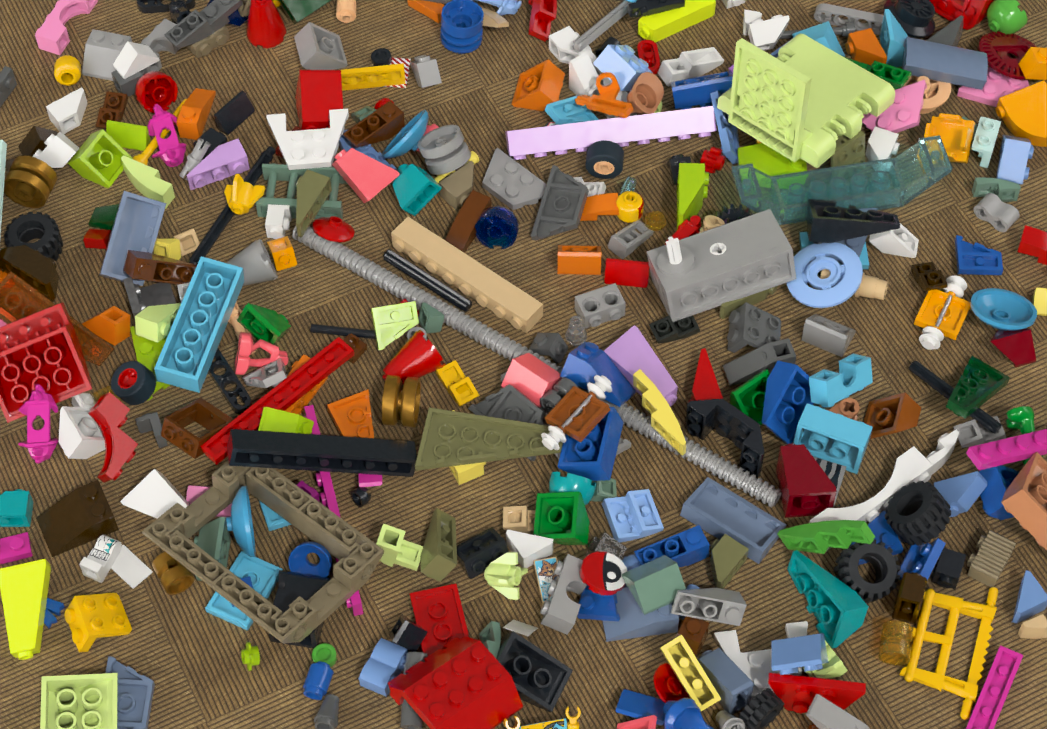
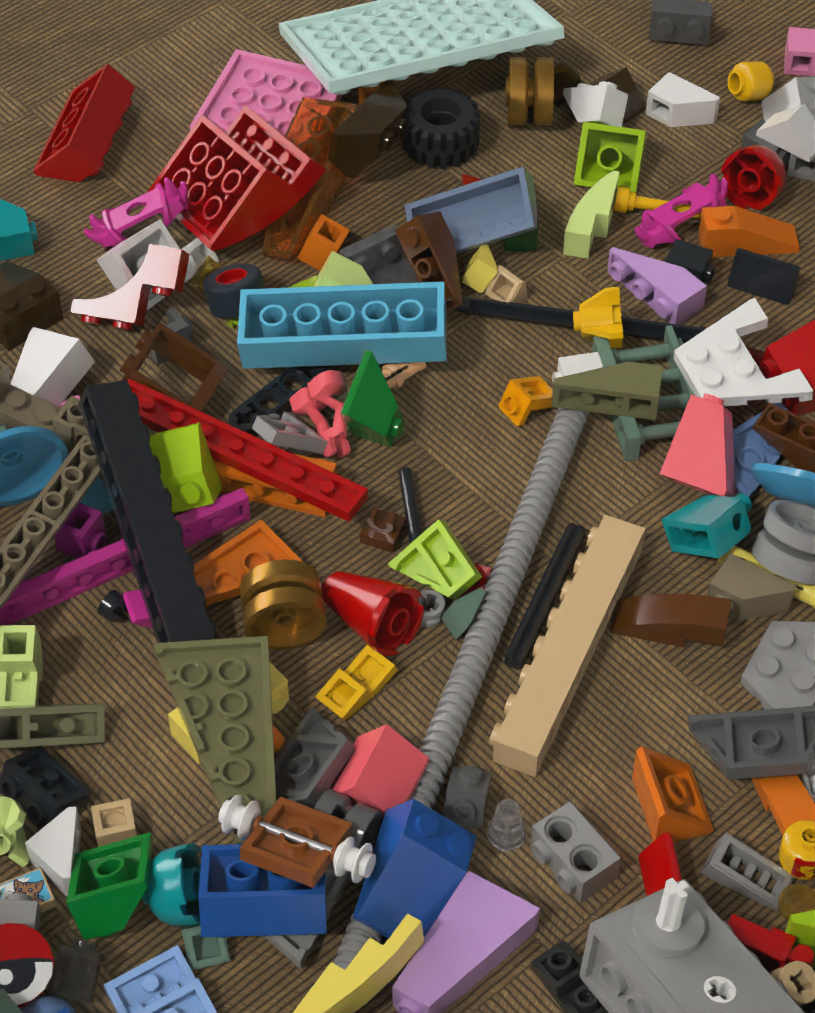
camera: 75 degrees right, 5 degrees down
(112, 109) = (699, 151): reddish brown slope -> none
(129, 135) = (666, 172): lime slope -> none
(195, 157) = (654, 247): light grey pin -> none
(255, 263) = (482, 365): light grey cone -> none
(333, 229) = (592, 447): red dish -> none
(497, 227) = (680, 658): clear blue cylinder -> none

